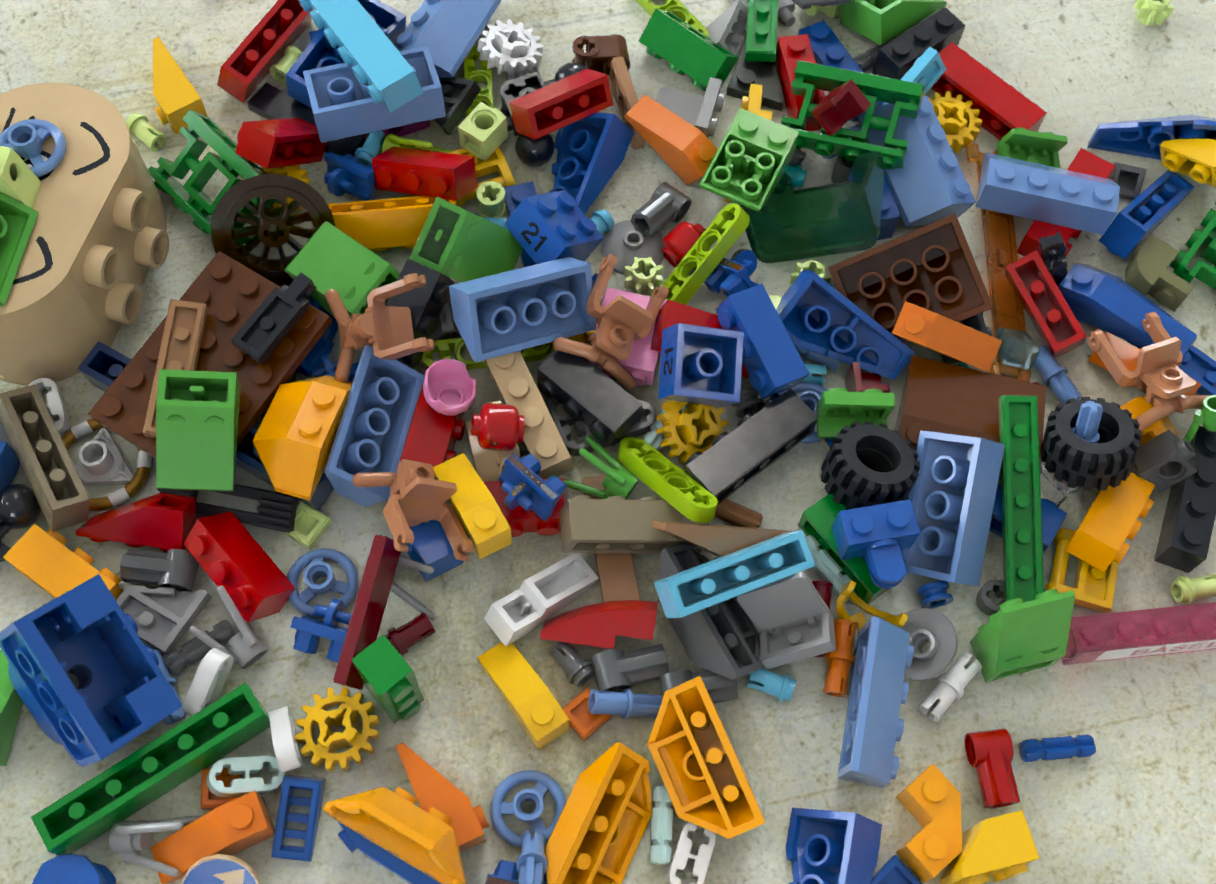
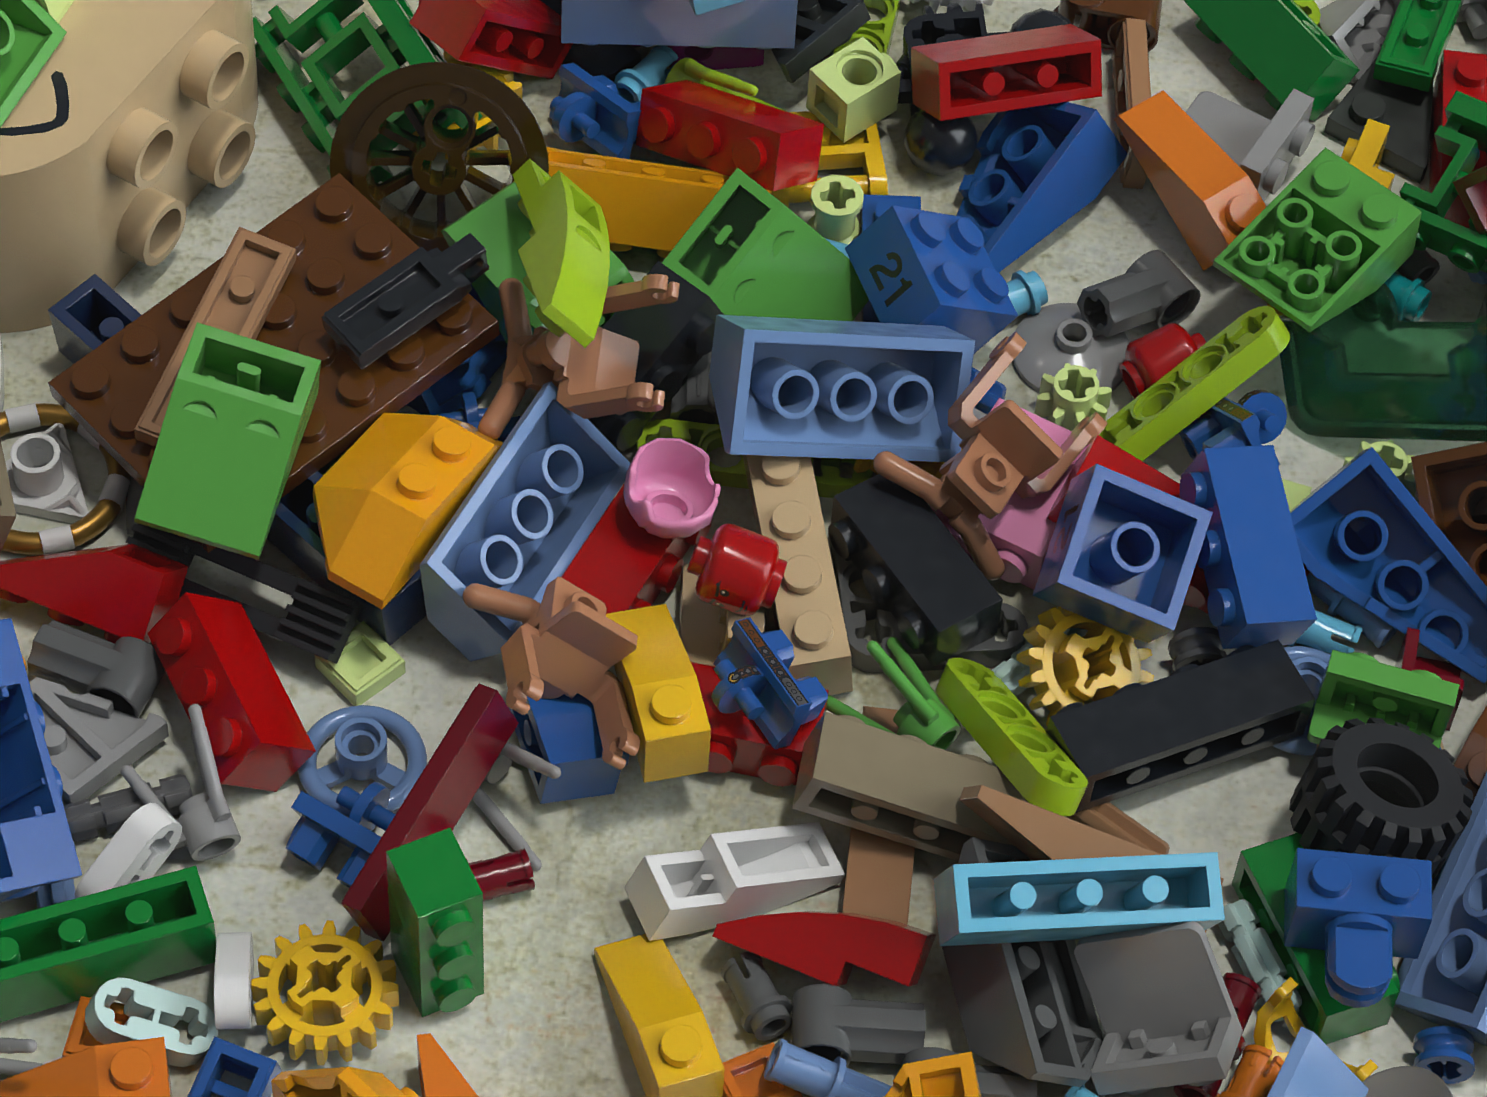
camera: 15 degrees right, 10 degrees down
(356, 272) = (566, 252): none -> lime slope

